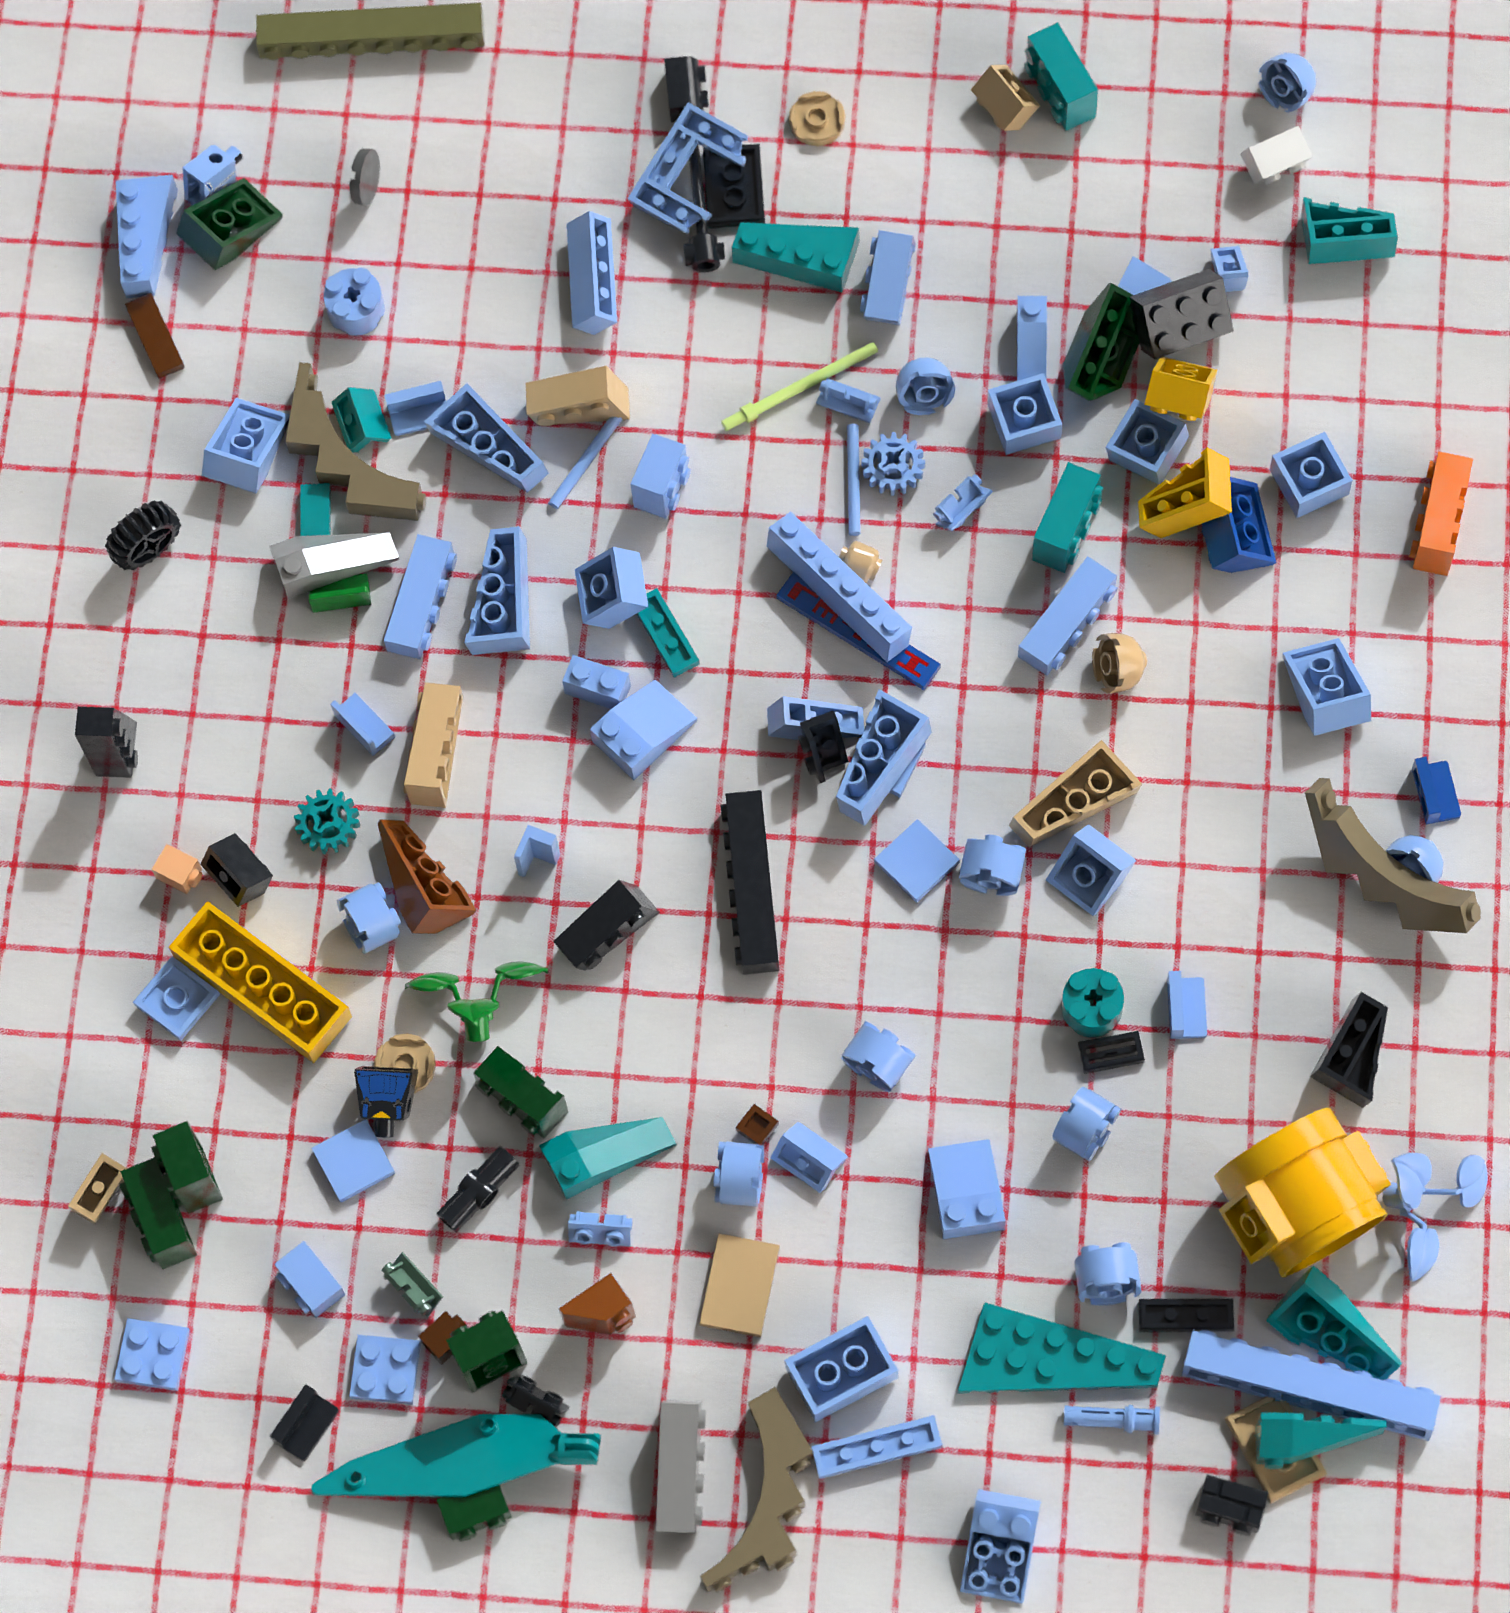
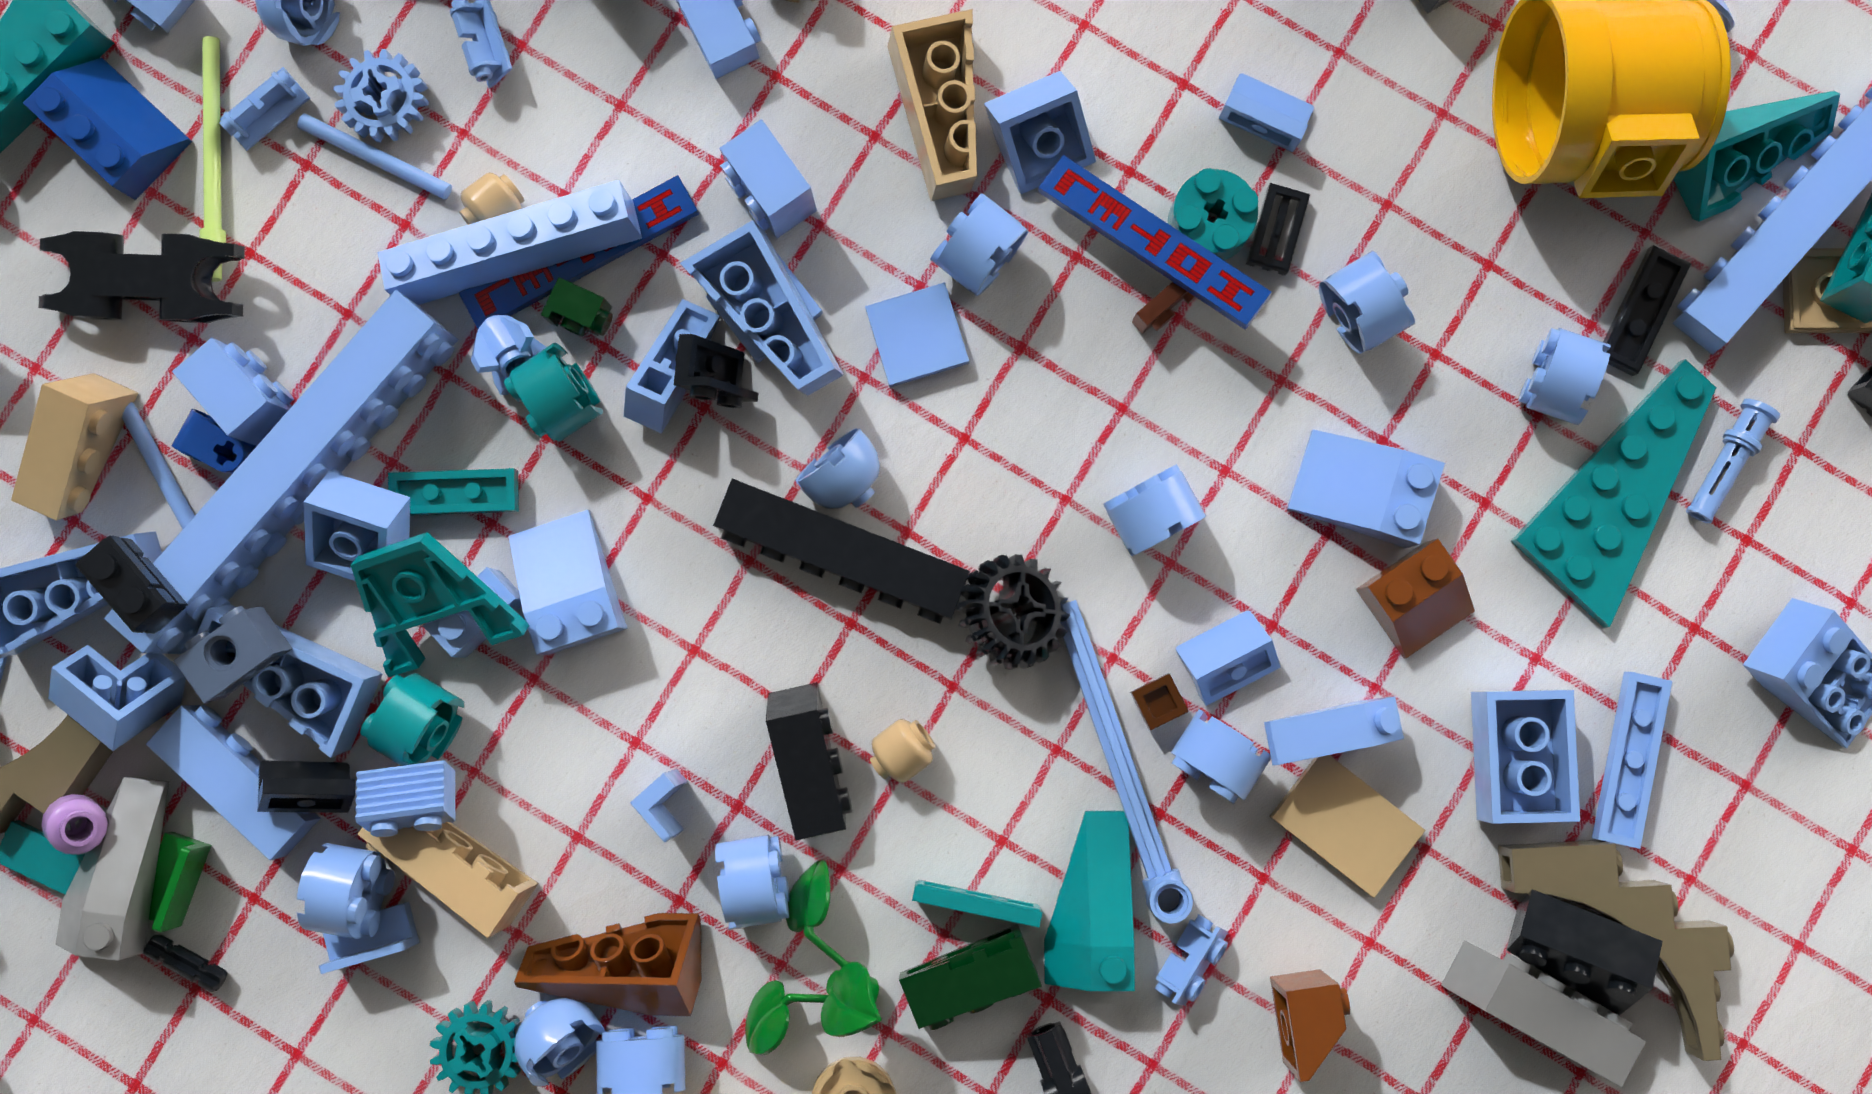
camera: 65 degrees left, 15 degrees up
(293, 625) = (185, 962): none -> black axle
(349, 529) = (79, 837): none -> lavender head
(356, 861) = (556, 1039): none -> light blue cylinder
(386, 692) = (344, 891): none -> light blue brick
(436, 503) = (112, 701): none -> light blue brick
(437, 638) = (305, 787): none -> black panel
(463, 696) = (405, 797): none -> light blue brick
(510, 680) = (413, 720): none -> teal brick
(512, 565) = (256, 644): none -> sand blue brick
(513, 477) = (131, 584): none -> black brick
(514, 927) = (752, 882): none -> light blue brick
(569, 1074) = (977, 903): none -> teal tile
(598, 638) = (419, 584): none -> teal wing
(603, 523) = (269, 488): none -> light blue brick
(619, 474) = (208, 443): none -> blue piece
(643, 980) = (902, 750): none -> tan head
(700, 1124) = (1123, 771): none -> light blue piece
(711, 404) = (106, 276): none -> black piece
(731, 1462) = (1585, 951): none -> black wedge
(758, 659) = (554, 394): none -> teal brick
(761, 990) = (1029, 595): none -> black gear
(771, 619) = (502, 346): none -> light blue brick
(787, 318) = (108, 124): none -> blue slope
(793, 1234) = (1334, 730): none -> light blue slope
(800, 856) = (842, 473): none -> light blue cylinder
(820, 646) = (577, 309): none -> dark green brick
(911, 1256) = (1418, 597): none -> dark orange slope
(963, 716) = (769, 179): none -> light blue brick
(1036, 1008) = (1158, 310): none -> copper plate
(1052, 970) = (1155, 242): none -> blue tile

